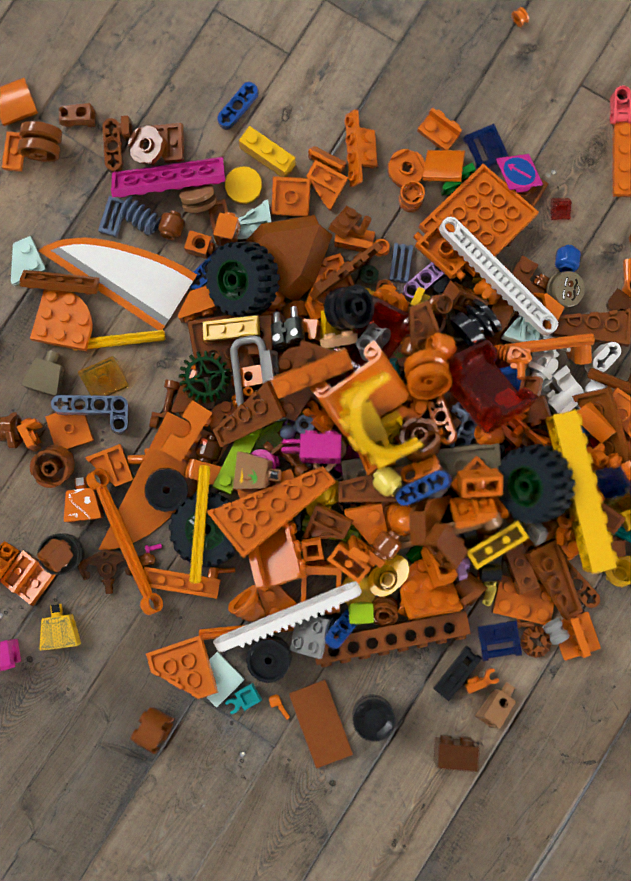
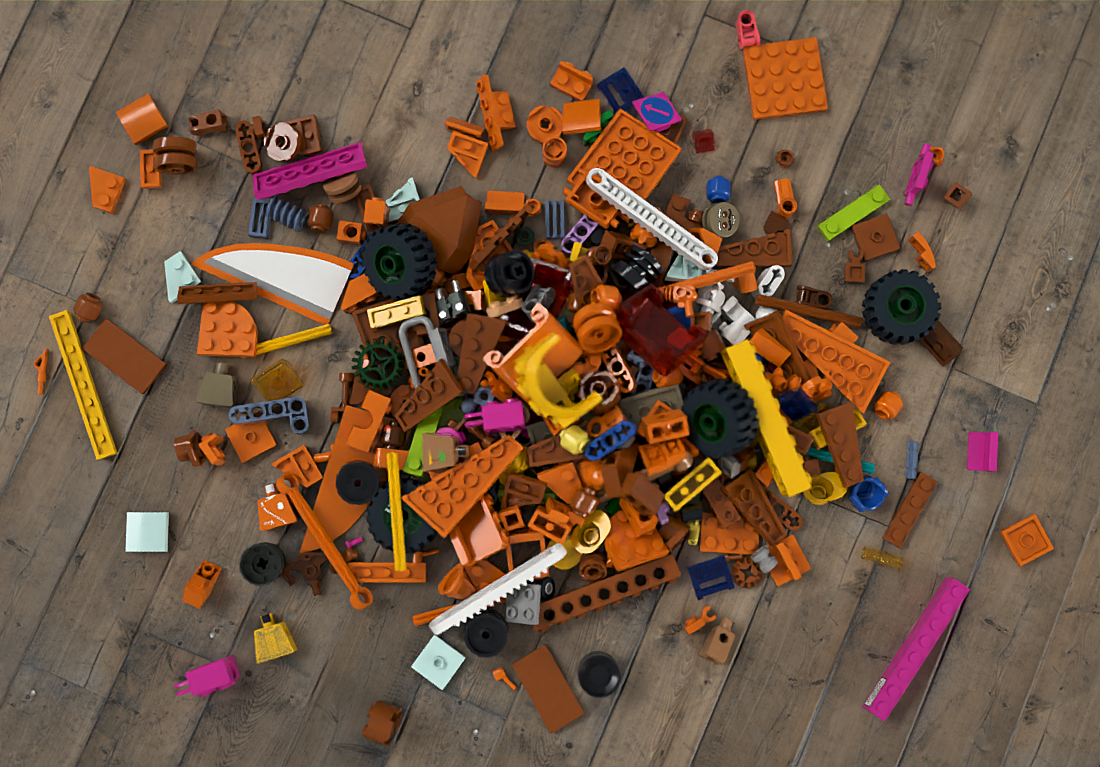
camera: 15 degrees left, 0 degrees up
(27, 578) = (232, 593): orange slope -> none
(55, 555) = (257, 565): dark orange brick -> none
(60, 459) = (230, 477): dark orange brick -> none
(185, 666) = (404, 655): orange plate -> none
(243, 185) = (385, 166): yellow tile -> none
(245, 697) = (469, 675): teal plate -> none
(250, 98) = (369, 74): blue beam -> none
(267, 152) = (404, 130): yellow brick -> none
(290, 196) = (434, 171): orange plate -> none
(312, 373) = (484, 344): orange arch -> none
(336, 628) = (556, 596): blue beam -> none
(347, 222) = (495, 186): dark orange plate -> none
(361, 613) = (570, 573): lime slope -> none
(456, 753) = (685, 695): reddish brown brick -> none
(457, 673) = (674, 617): black plate -> none
(564, 530) = (756, 458): orange plate -> none

